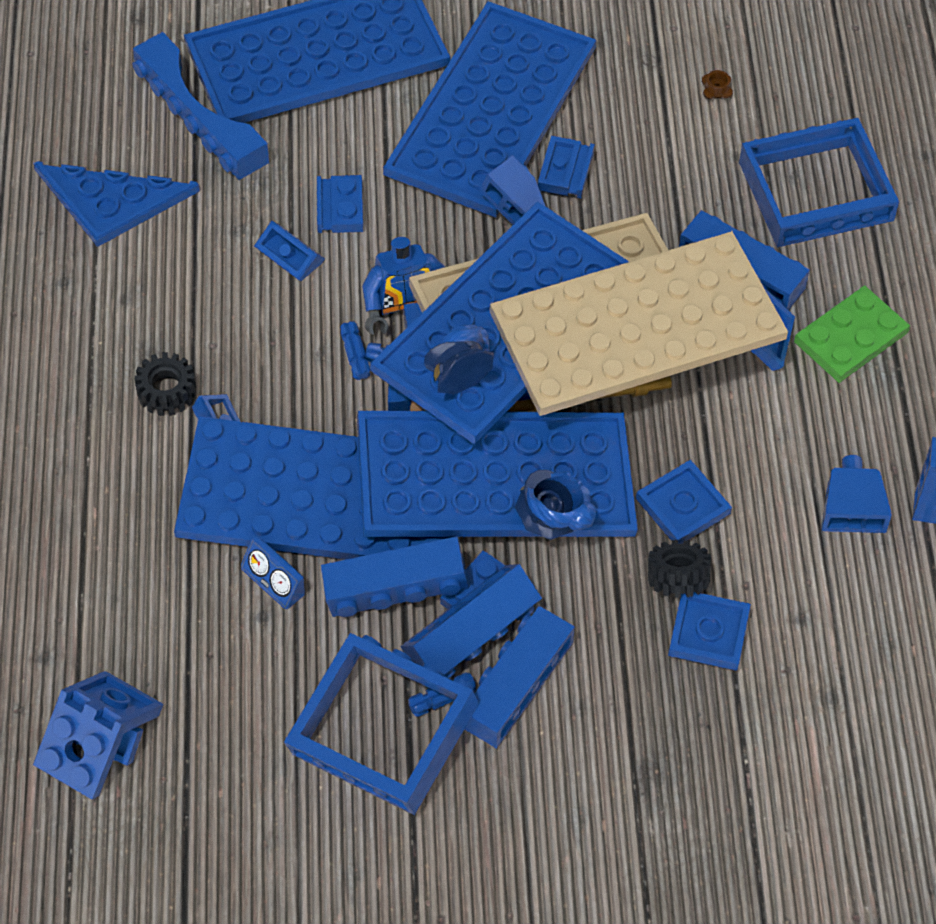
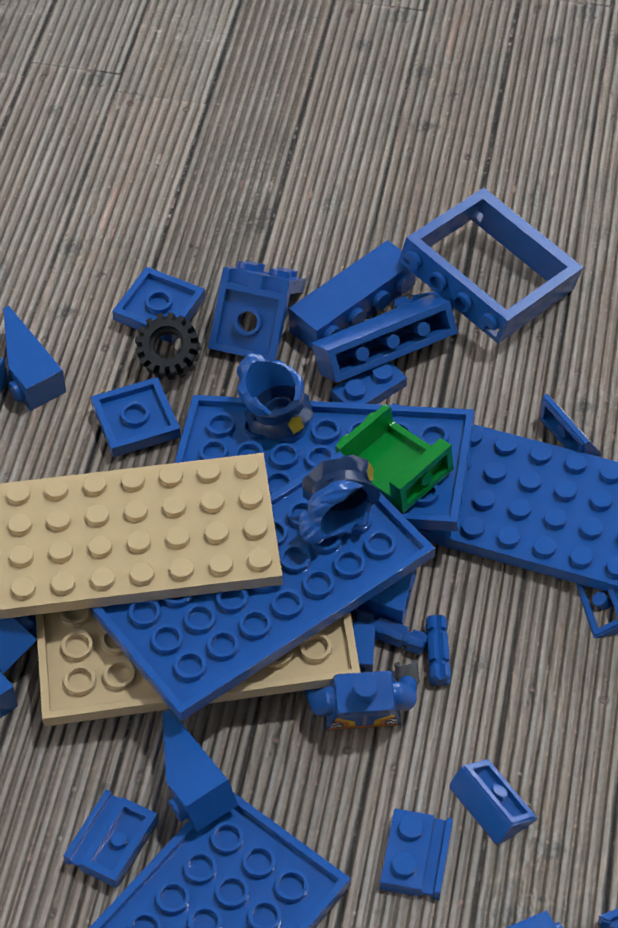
camera: 165 degrees left, 5 degrees down
(394, 577) = (447, 383): blue brick -> none
(425, 454) = (401, 461): none -> green panel
(616, 627) = (260, 292): none -> blue bracket
(804, 531) = (32, 370): none -> blue slope

